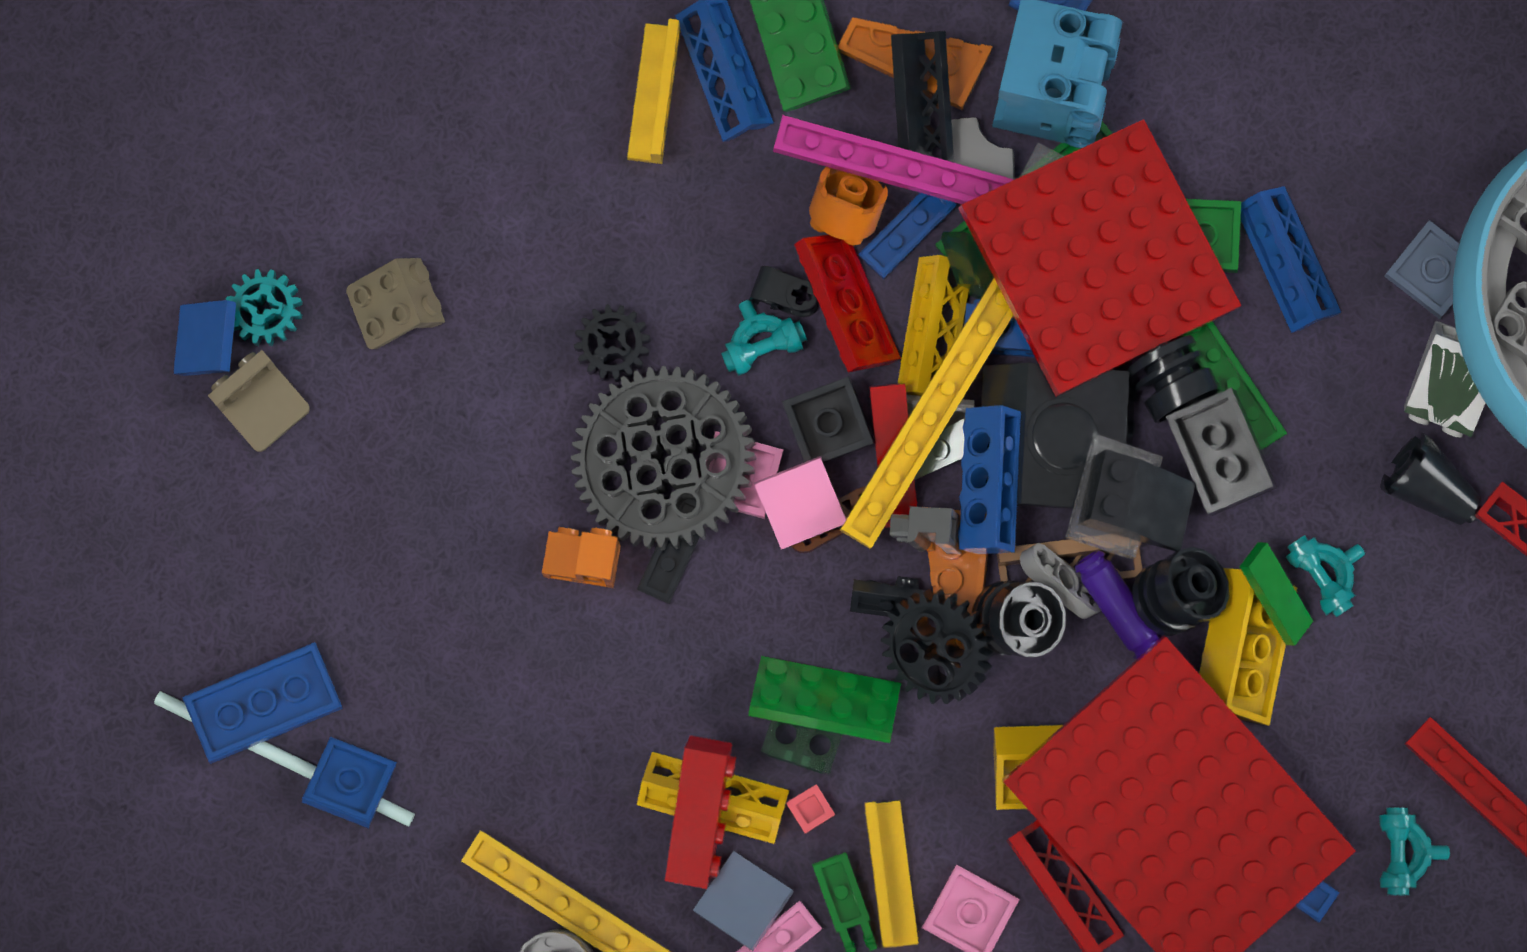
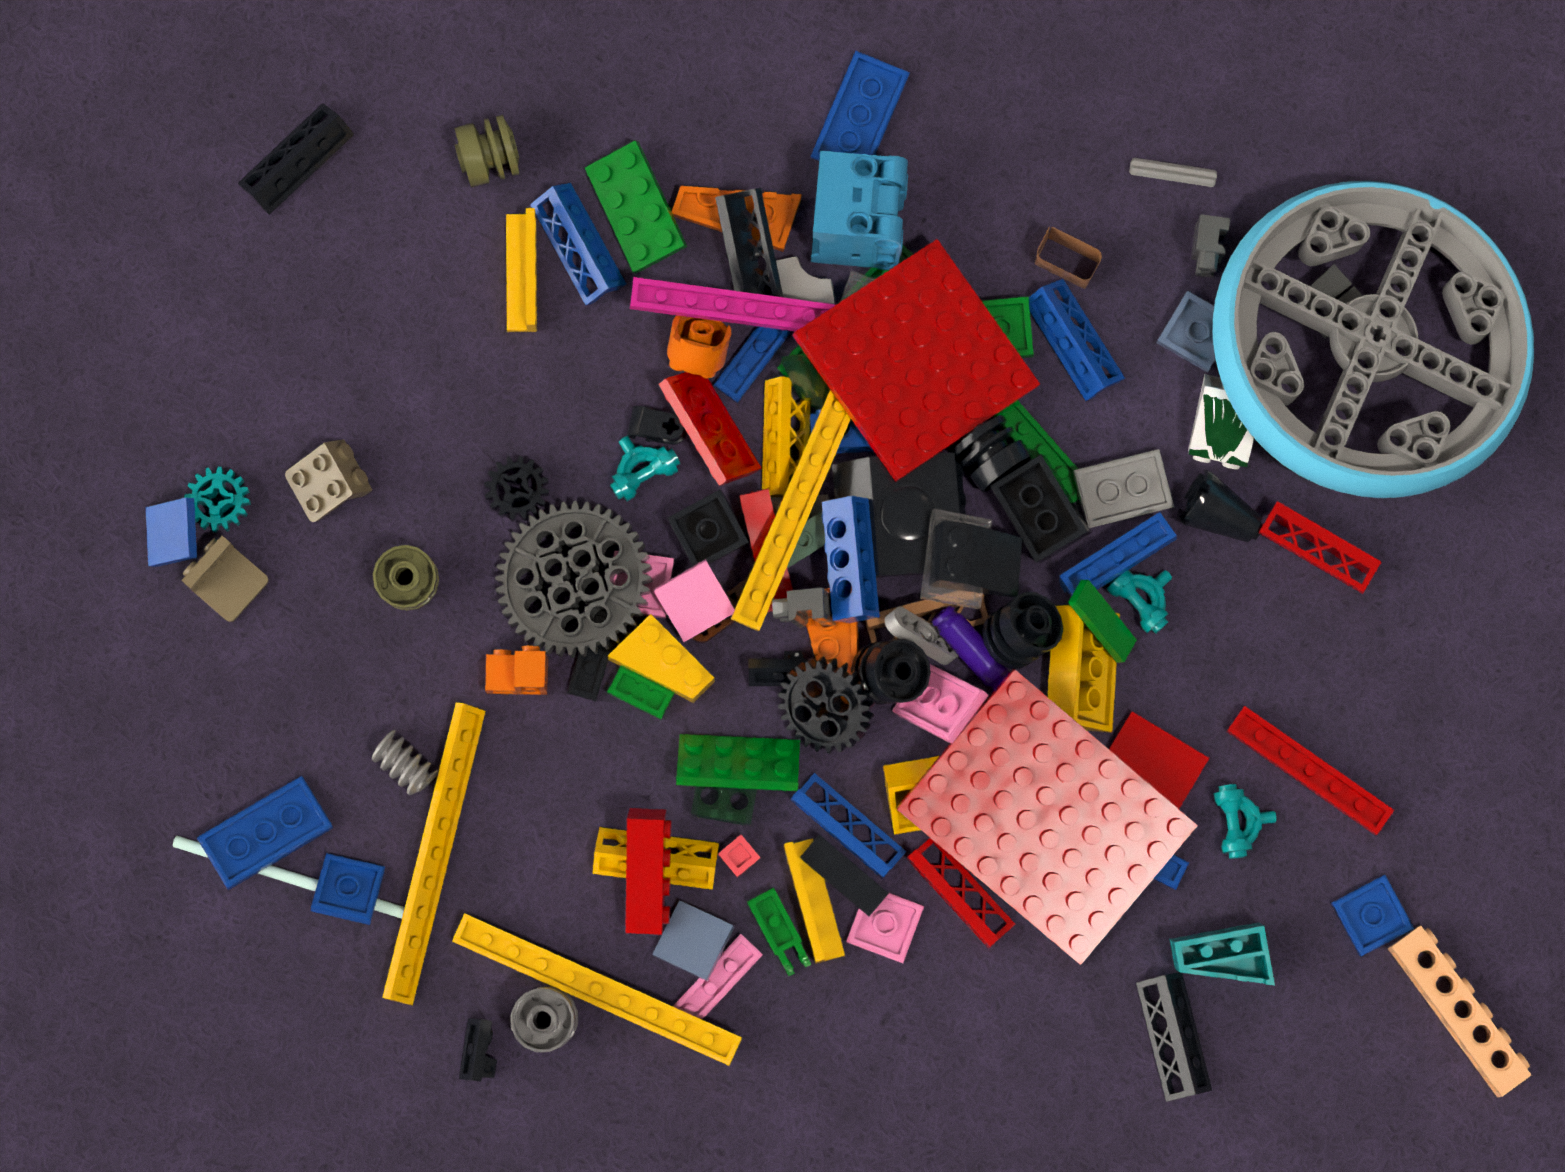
camera: 15 degrees left, 0 degrees up
(434, 645) = (403, 764): none -> light grey piece
(453, 413) = (393, 564): none -> olive wheel
(455, 756) = (434, 854): none -> yellow plate
(723, 601) = (641, 692): none -> green plate
(753, 566) = (662, 659): none -> yellow wedge
(930, 850) = (844, 875): none -> black tile
(934, 801) = (841, 834): none -> blue fence
(1076, 667) = (944, 705): none -> bright pink tile
(1303, 148) = (1073, 244): none -> medium nougat piece
(1308, 518) = (1120, 554): none -> blue fence
(1320, 764) = (1159, 758): none -> red tile
(1321, 441) = (1123, 488): none -> light grey tile
(1431, 79) = (1173, 172): none -> light grey axle
(1458, 168) = (1205, 244): none -> dark grey hips

